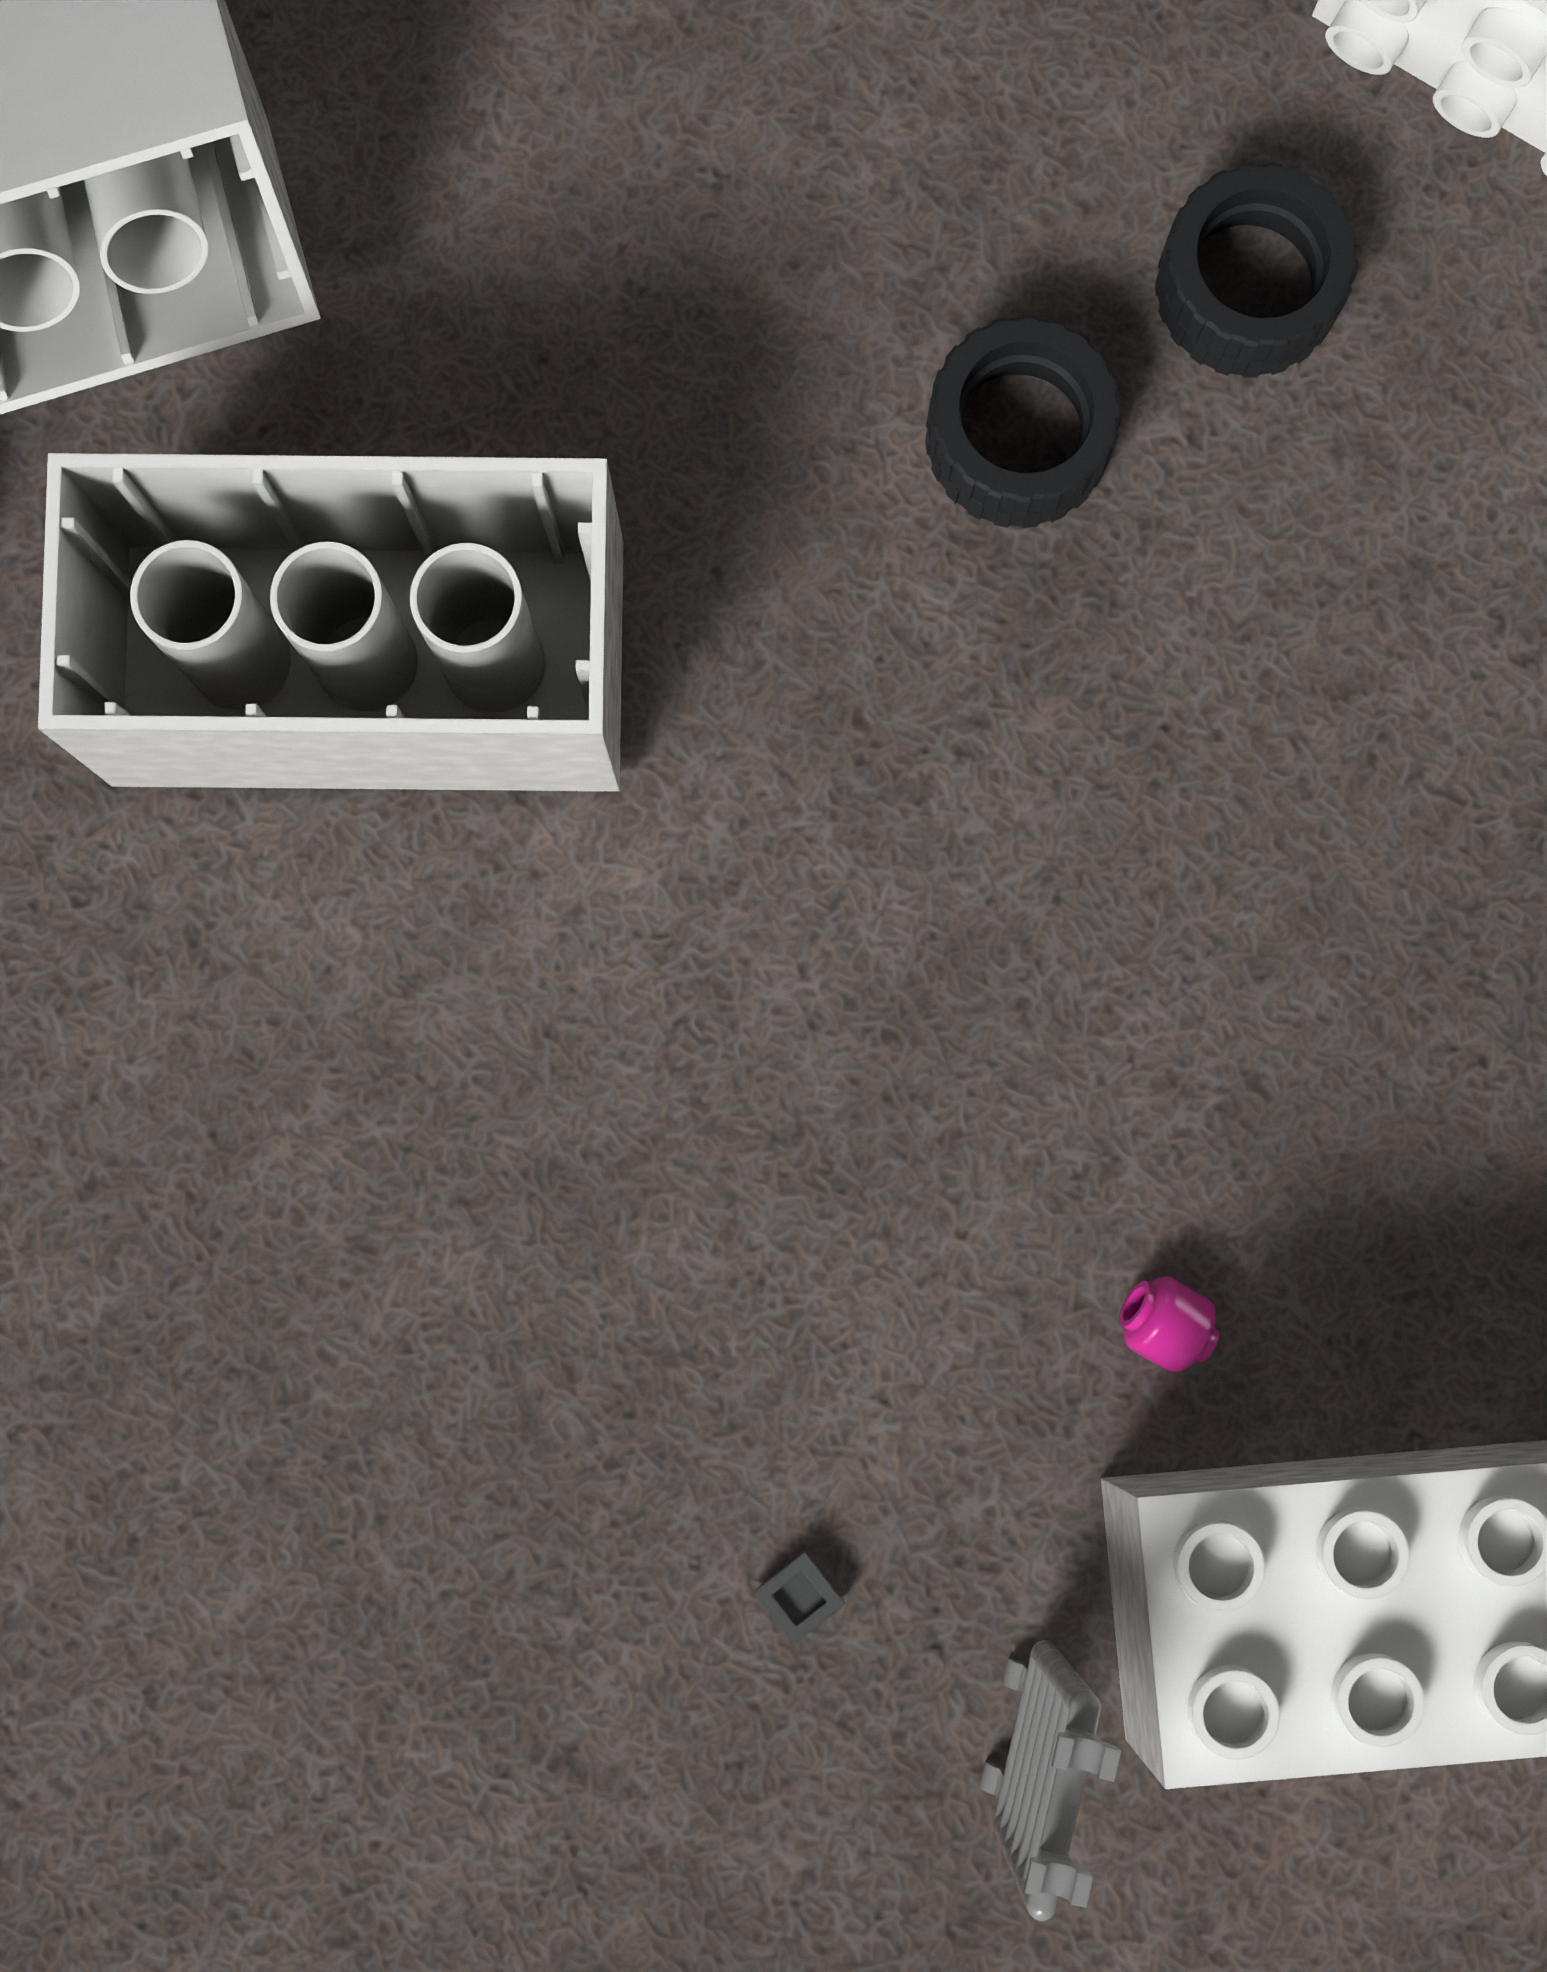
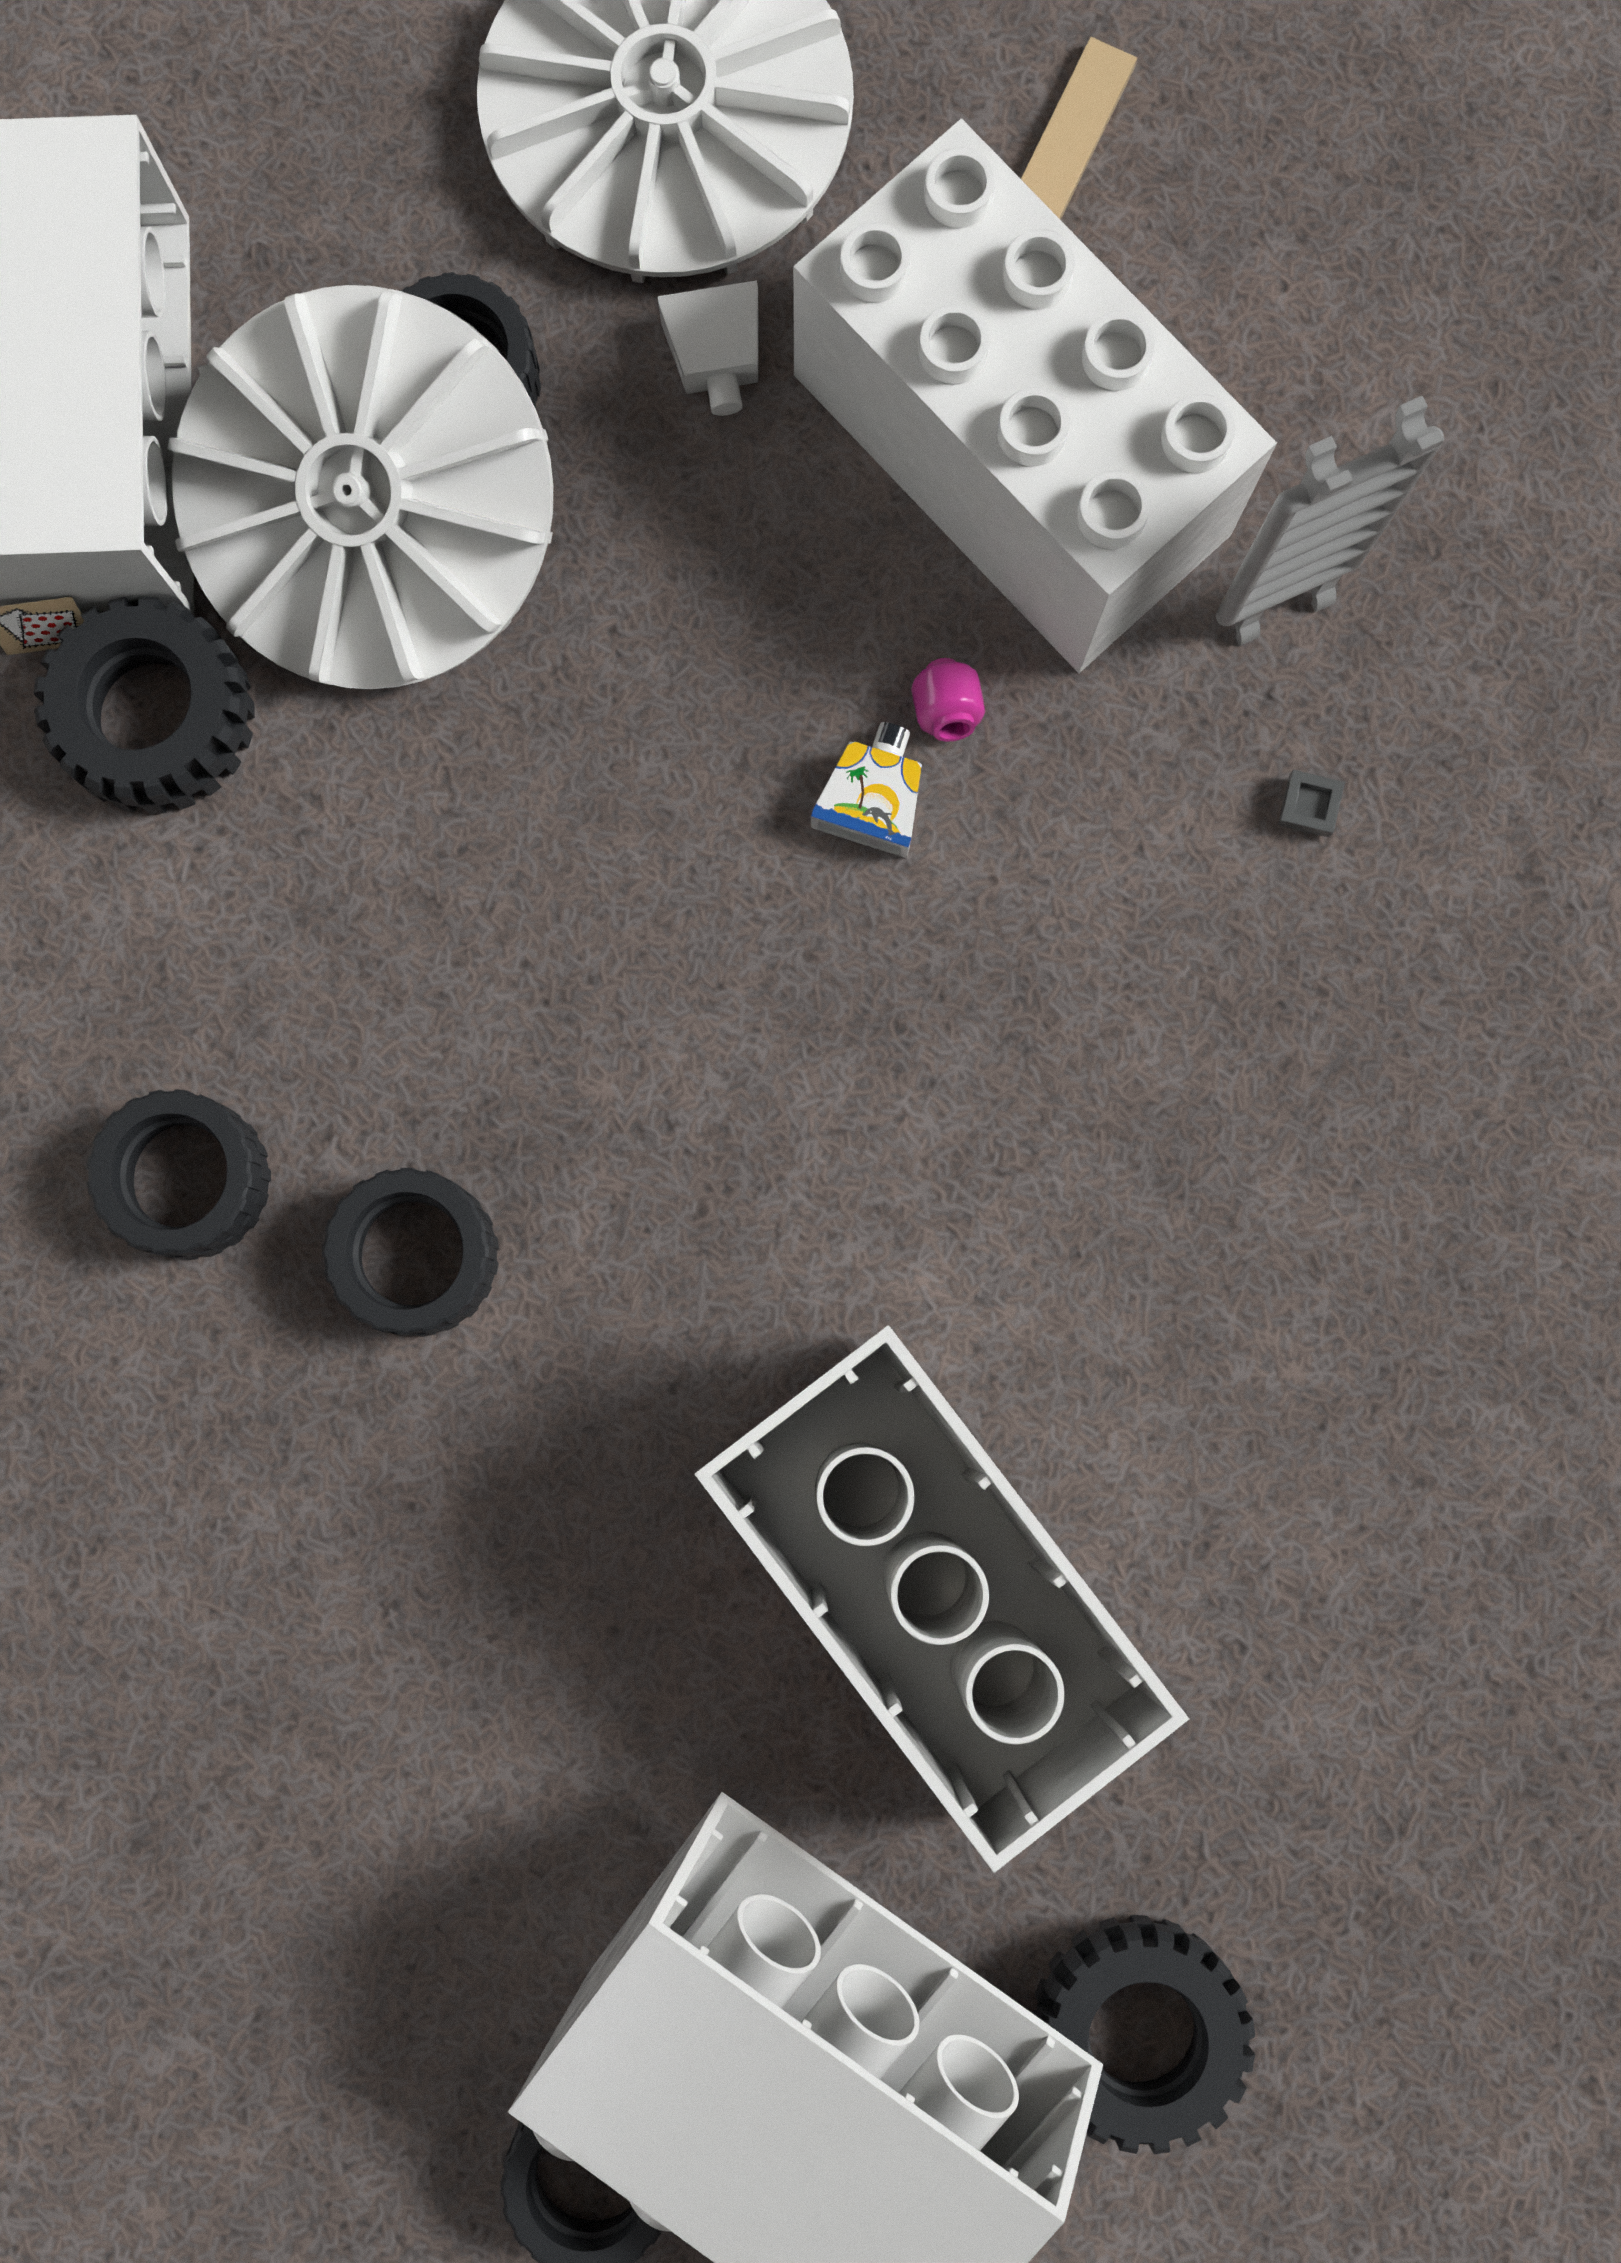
camera: 130 degrees left, 0 degrees up
(1132, 1180) = (872, 793): none -> torso

